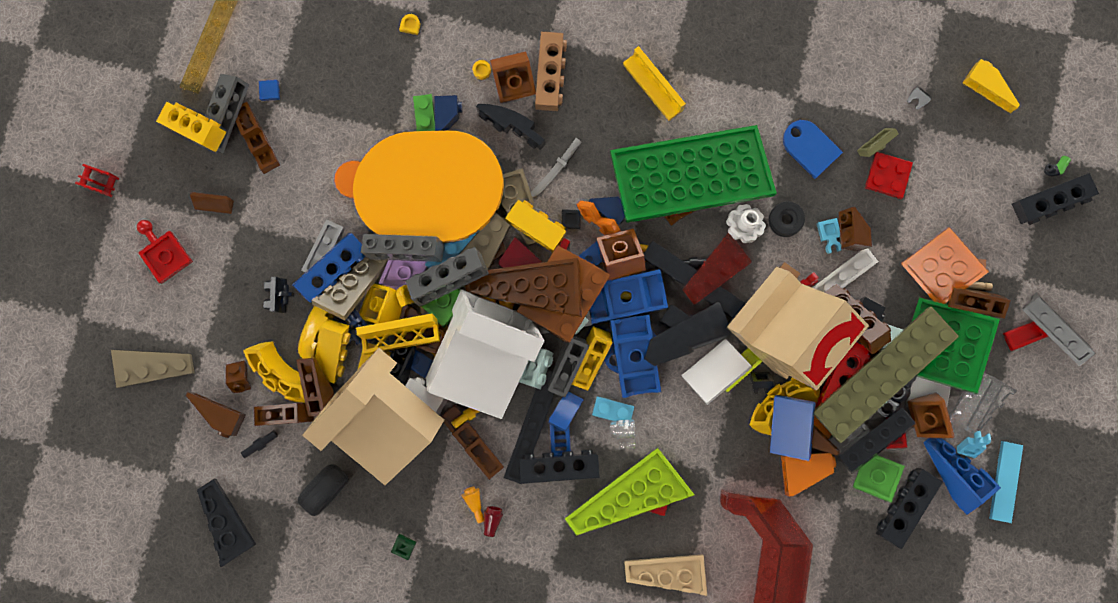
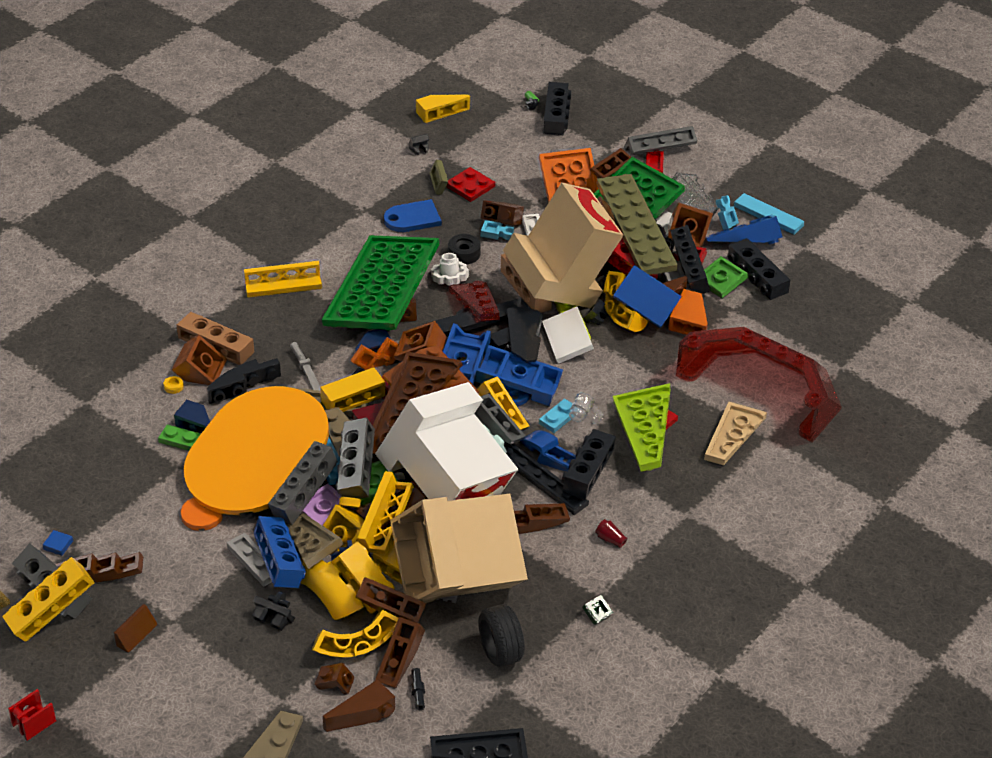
camera: 70 degrees left, 40 degrees down
(164, 255) = (156, 692): red plate -> none
(410, 24) = (87, 416): yellow tile -> none
(472, 499) = (583, 540): light orange cone -> none

